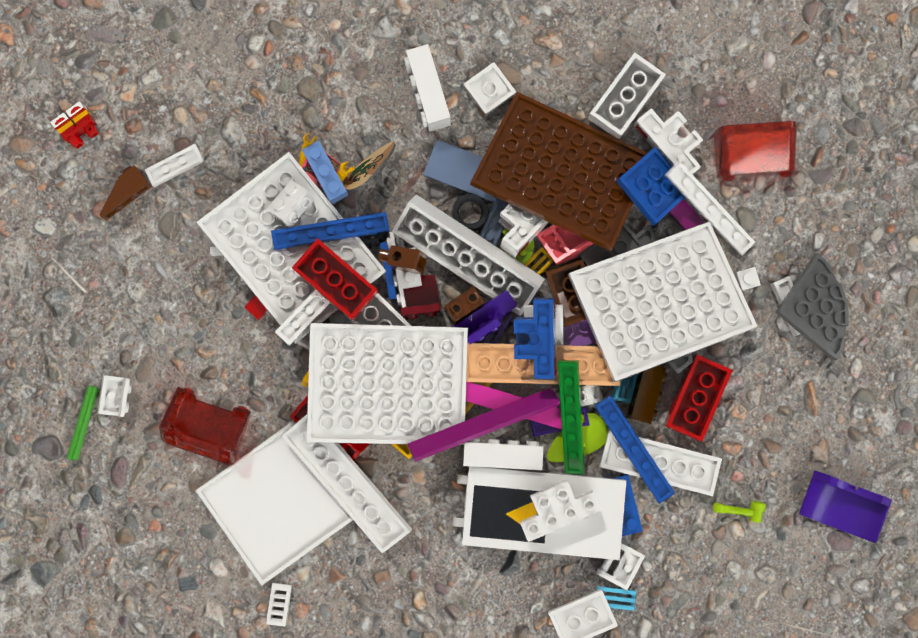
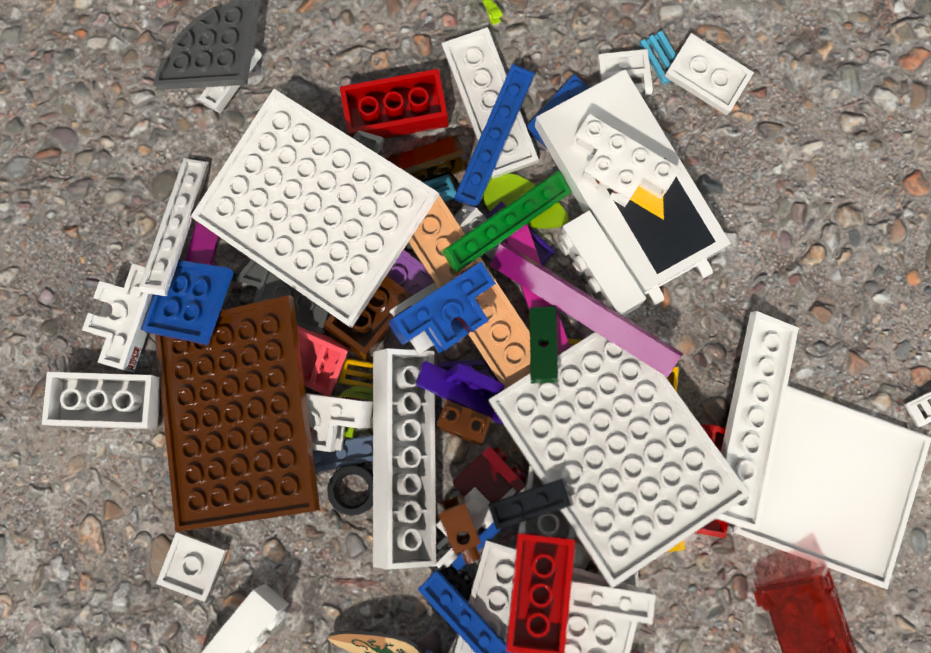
camera: 120 degrees left, 5 degrees down
(389, 309) = (531, 504): none -> black tile
(455, 168) = (312, 542): sand blue tile -> none
(486, 390) = (543, 332): none -> dark green tile
(747, 279) = (227, 136): white brick -> none
(755, 149) = (76, 221): clear red windscreen -> none

